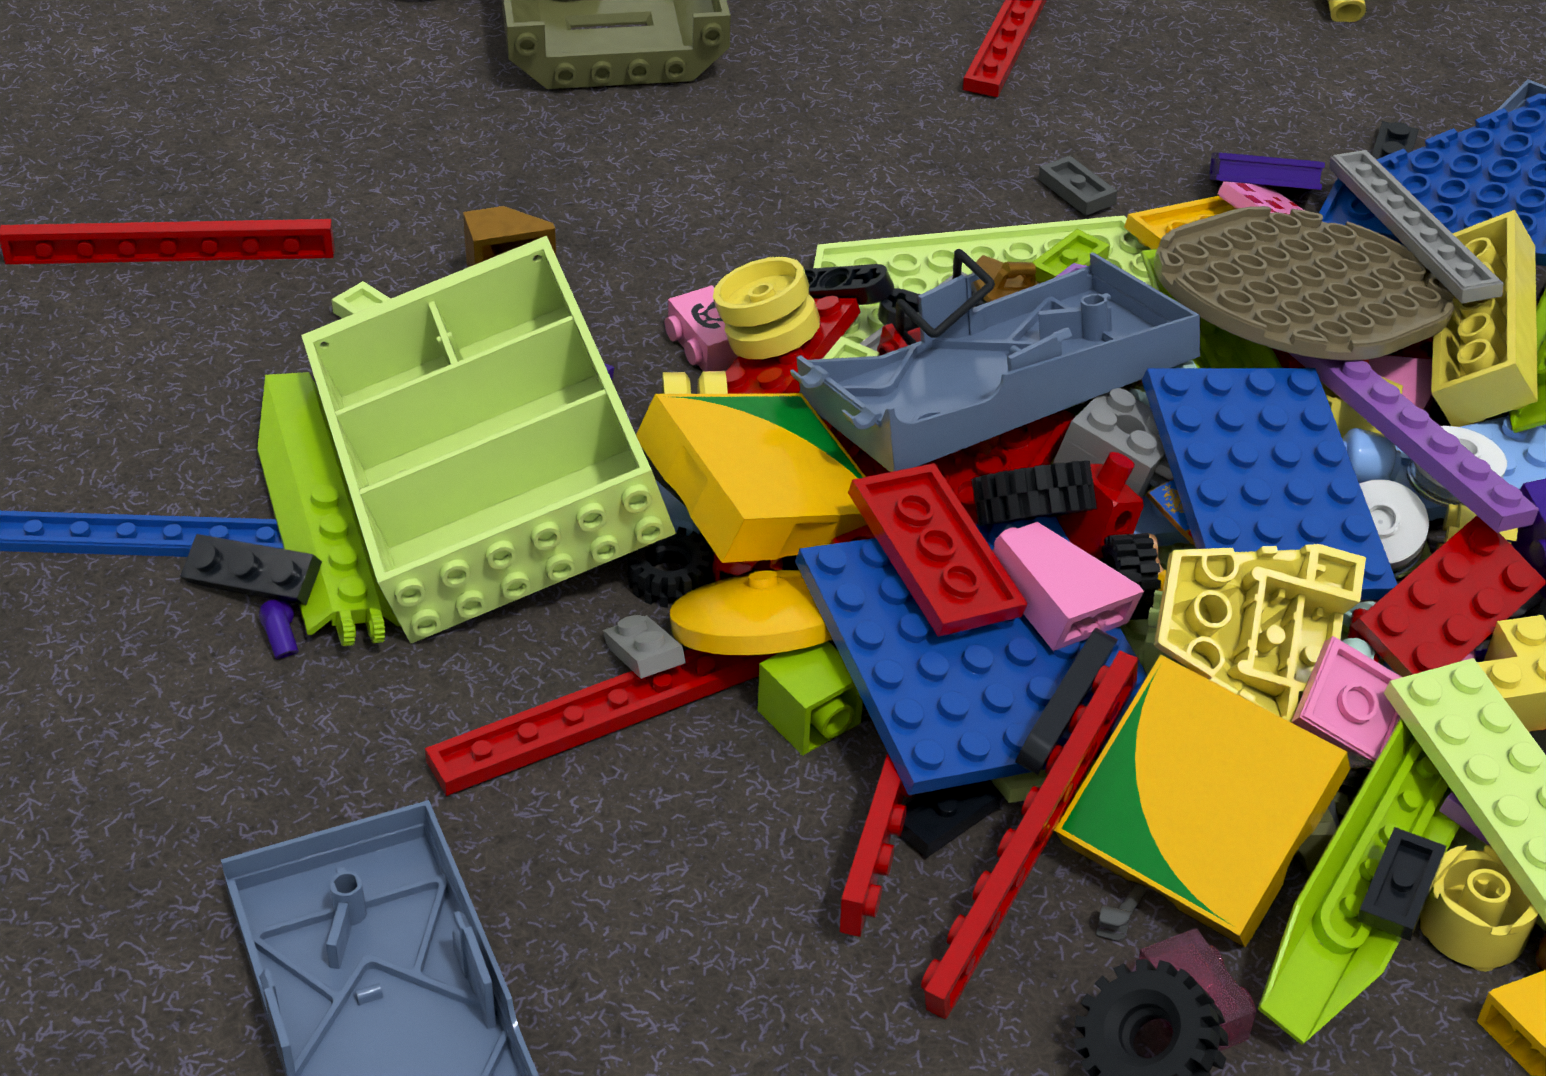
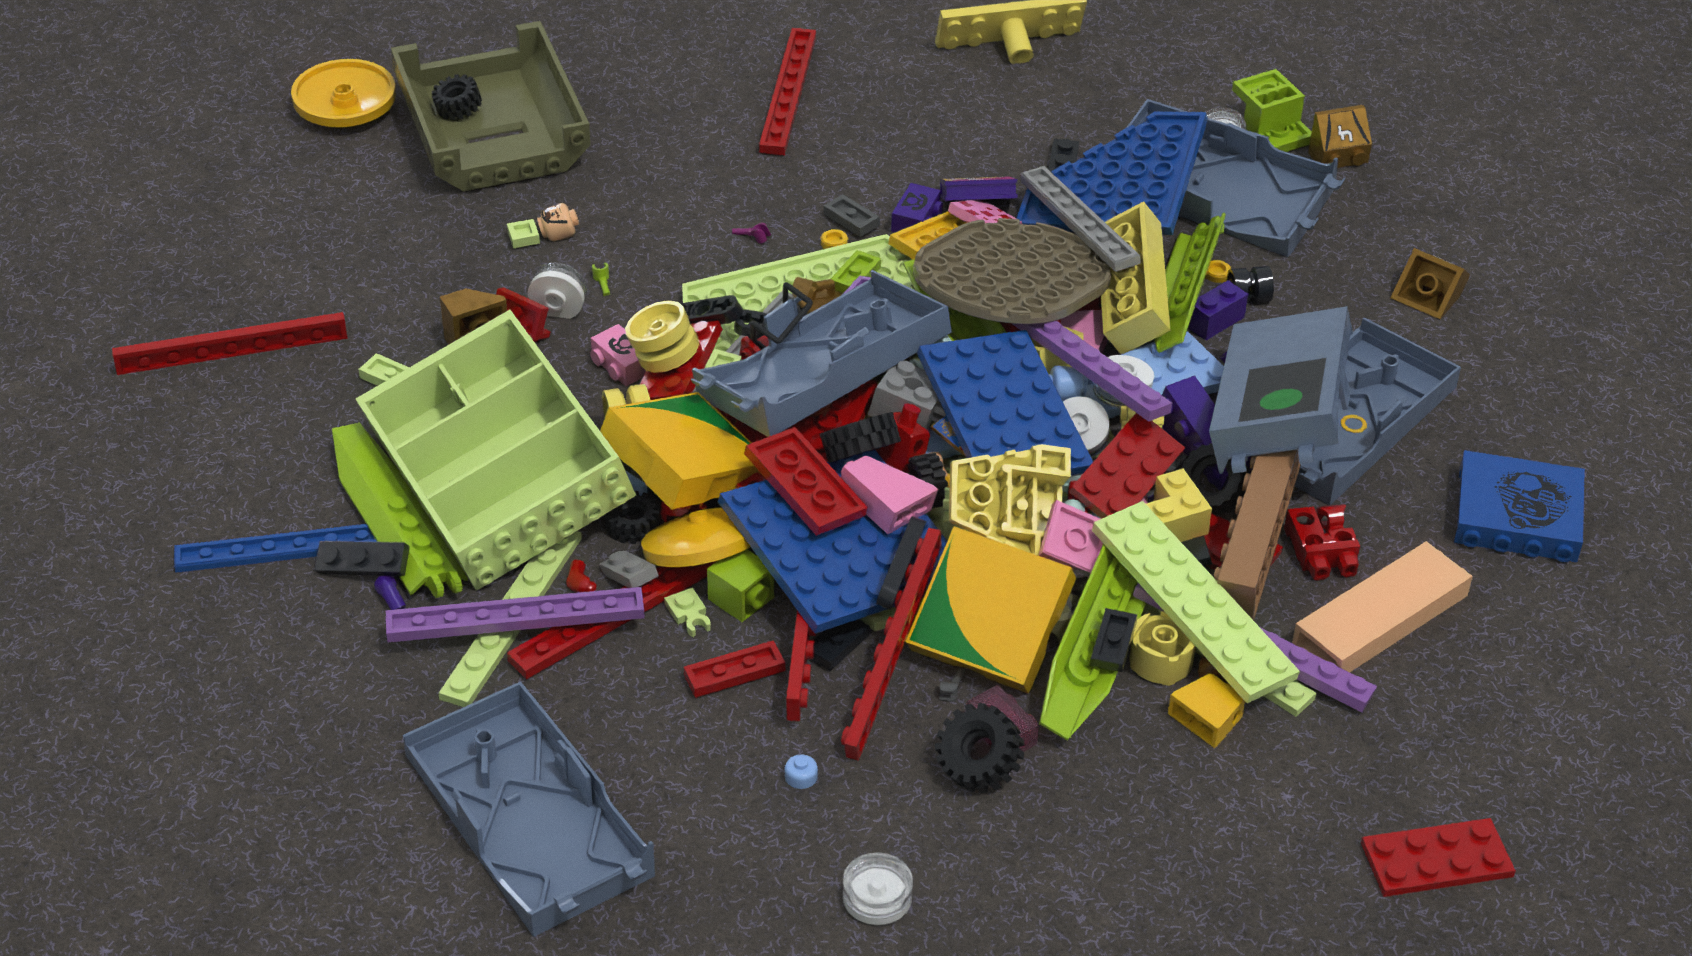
camera: 10 degrees left, 0 degrees up
(438, 702) = (490, 648): none -> yellowish green plate
(449, 690) = (514, 614): none -> medium lavender plate
(564, 651) = (577, 580): none -> red arm
(583, 257) = (528, 312): none -> red bracket
(612, 151) = (523, 233): none -> yellowish green plate
(637, 229) = (559, 289): none -> white piece
(663, 142) = (558, 222): none -> light nougat head
(707, 221) = (602, 275): none -> lime hand
(723, 720) = (688, 608): none -> yellowish green plate
(773, 830) = (734, 669): none -> red plate
(847, 1025) = (801, 771): none -> light blue piece
(943, 190) = (759, 231): none -> magenta hand
(1046, 212) = (833, 238): none -> yellow tile
(1172, 182) = (916, 206): none -> dark purple brick

